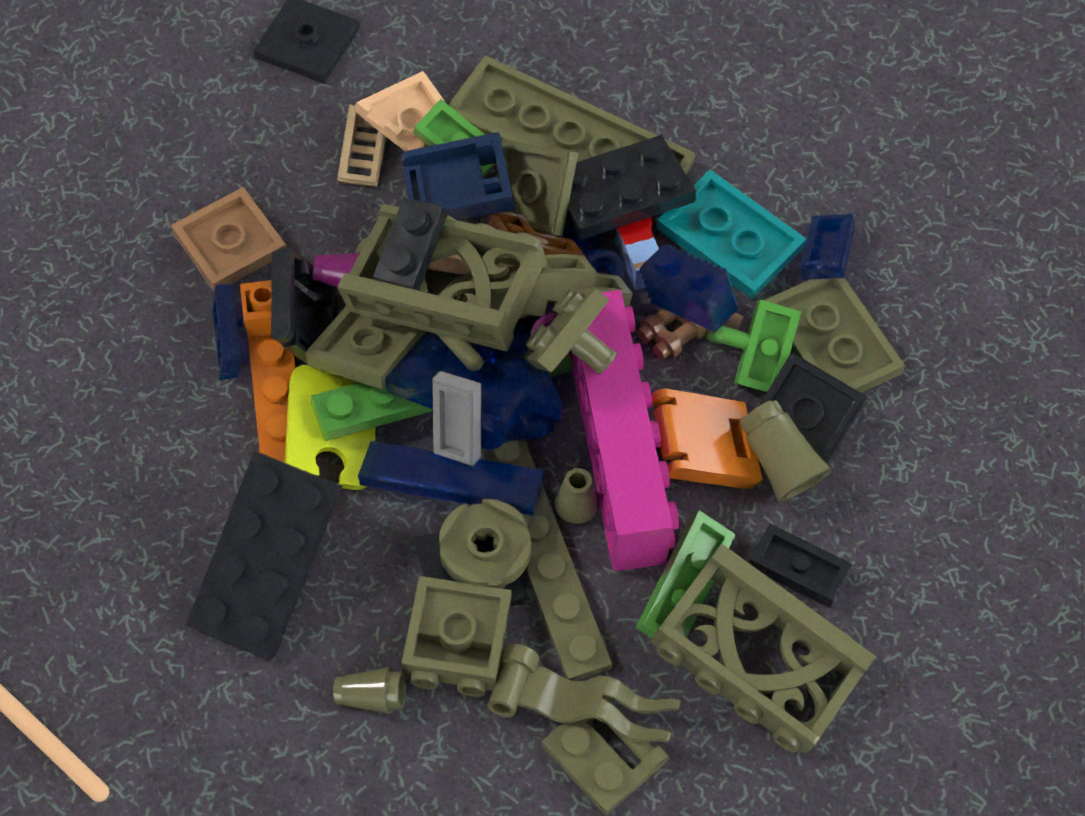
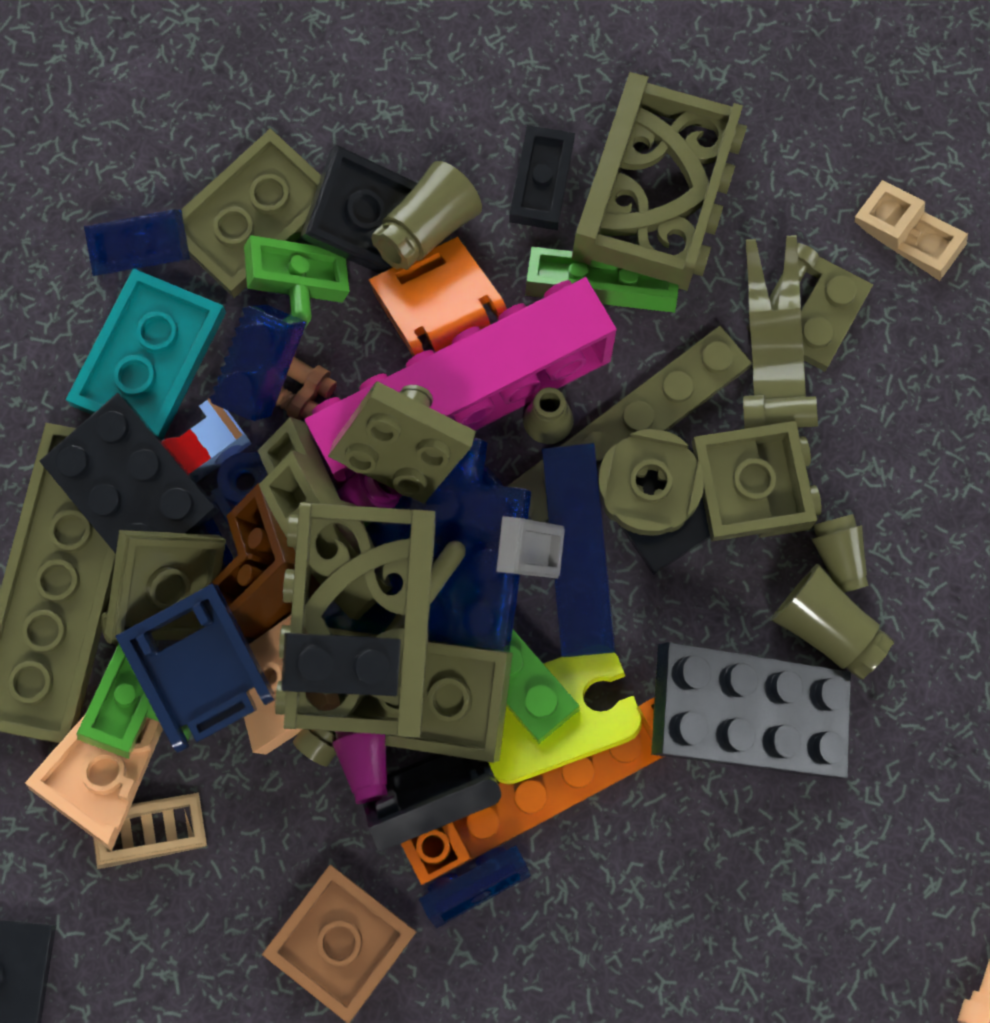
camera: 105 degrees left, 15 degrees up
(312, 654) = (833, 624): none -> olive plant

